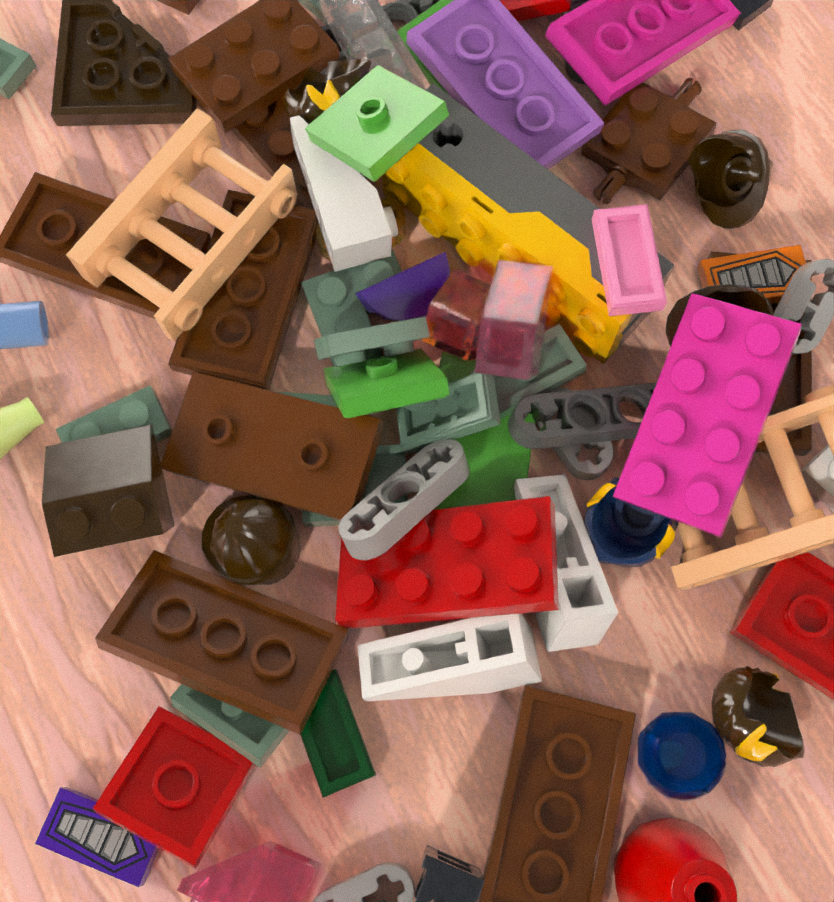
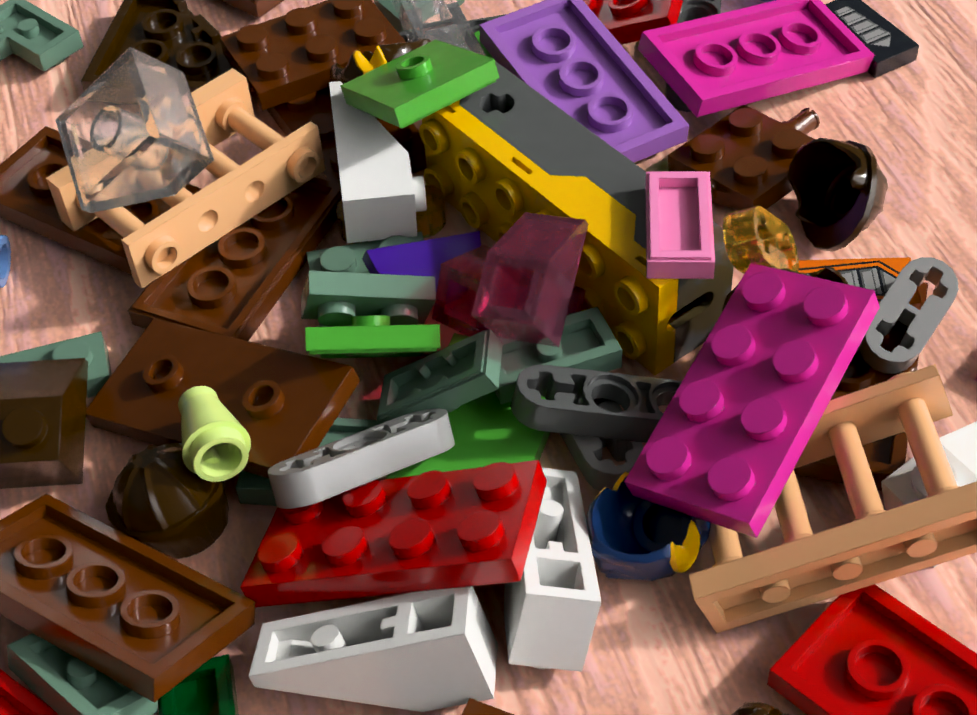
camera: 10 degrees right, 25 degrees down
(135, 207) = (133, 135): none -> clear slope
(283, 501) = (212, 438): none -> yellowish green cone
(692, 266) = (759, 239): none -> clear yellow beam

